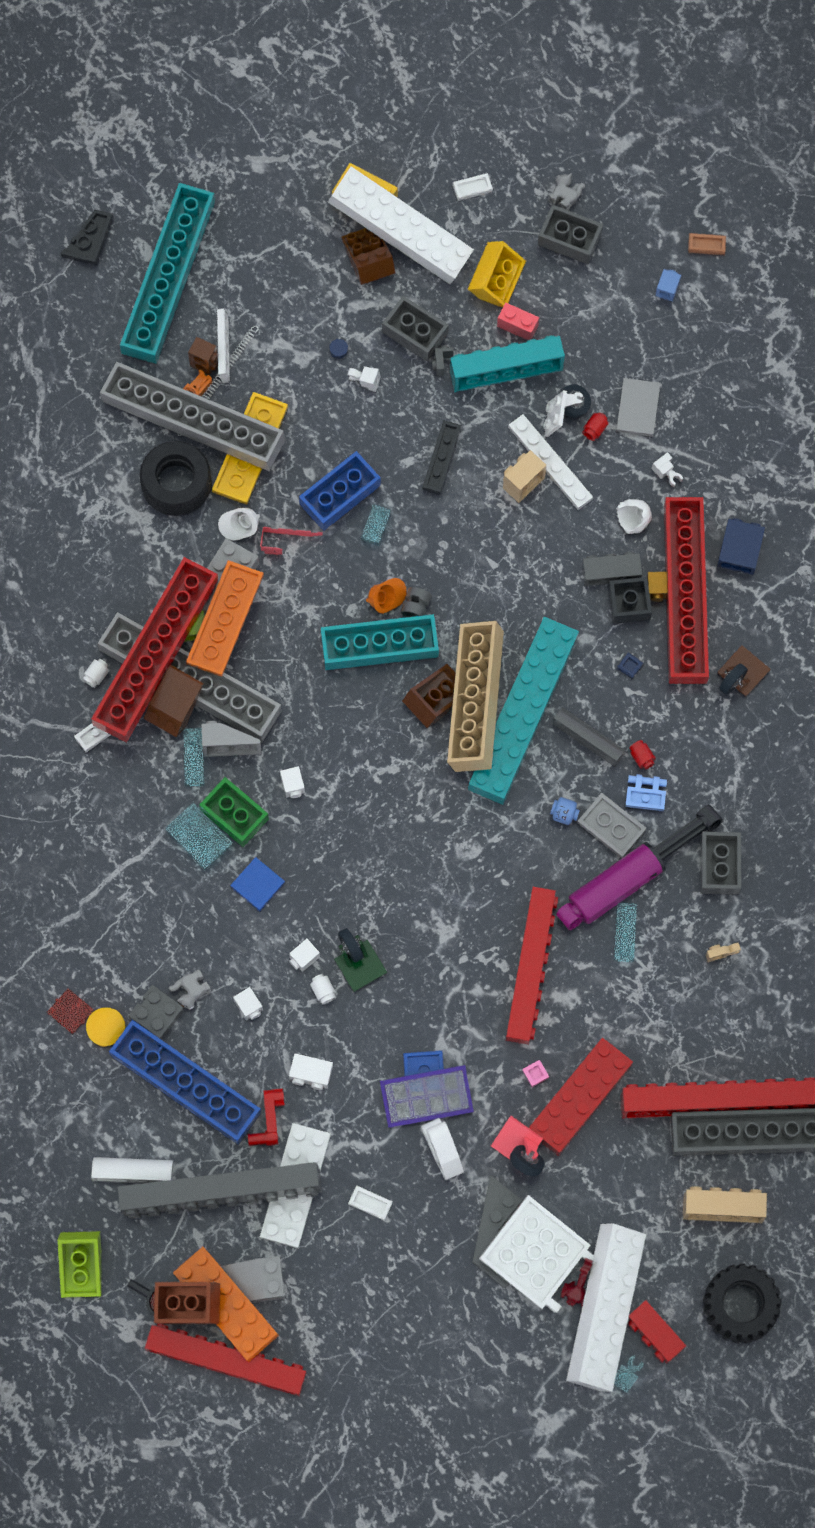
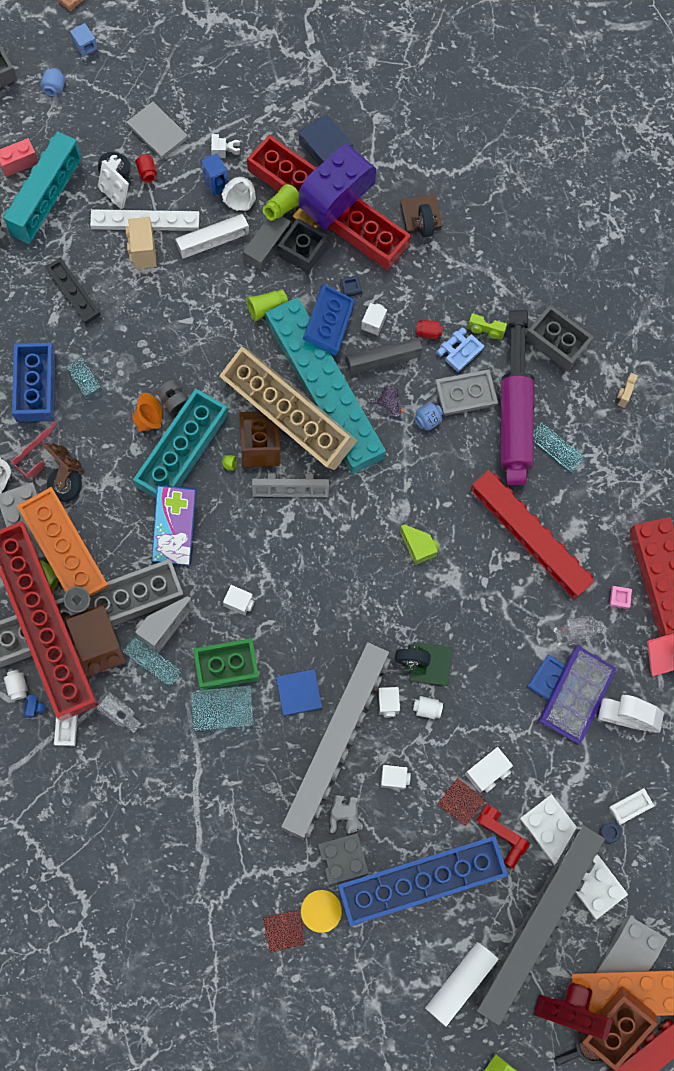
camera: 55 degrees left, 0 degrees up
(89, 698) = (31, 706): none -> blue tile
(134, 753) = (111, 706): none -> clear torso
(173, 1261) = (574, 1012): none -> dark red plate
(190, 661) = (76, 599): none -> dark grey wheel
(240, 937) = (335, 741): none -> light grey brick
(270, 1070) = (461, 802): none -> clear red piece
(281, 578) = (66, 478): none -> plate
(311, 686) = (173, 524): none -> tile
(336, 1201) = (610, 832): none -> dark blue tile
(399, 689) = (229, 462): none -> lime hinge
(407, 740) = (290, 487): none -> light grey hinge
(450, 884) = (419, 544): none -> lime slope
(471, 1056) = (577, 630): none -> clear torso
(553, 771) = (389, 400): none -> clear purple animal
(555, 611) = (262, 303): none -> lime plant
(580, 523) = (212, 236): none -> white brick
(580, 670) = (329, 319): none -> blue tile
(609, 293) = (52, 82): none -> medium blue head
(615, 705) = (374, 318): none -> white brick
(632, 482) = (214, 173): none -> blue brick
(649, 554) = (282, 202): none -> lime plant
(686, 806) = (478, 325): none -> lime piece
(696, 584) = (336, 185): none -> dark purple brick

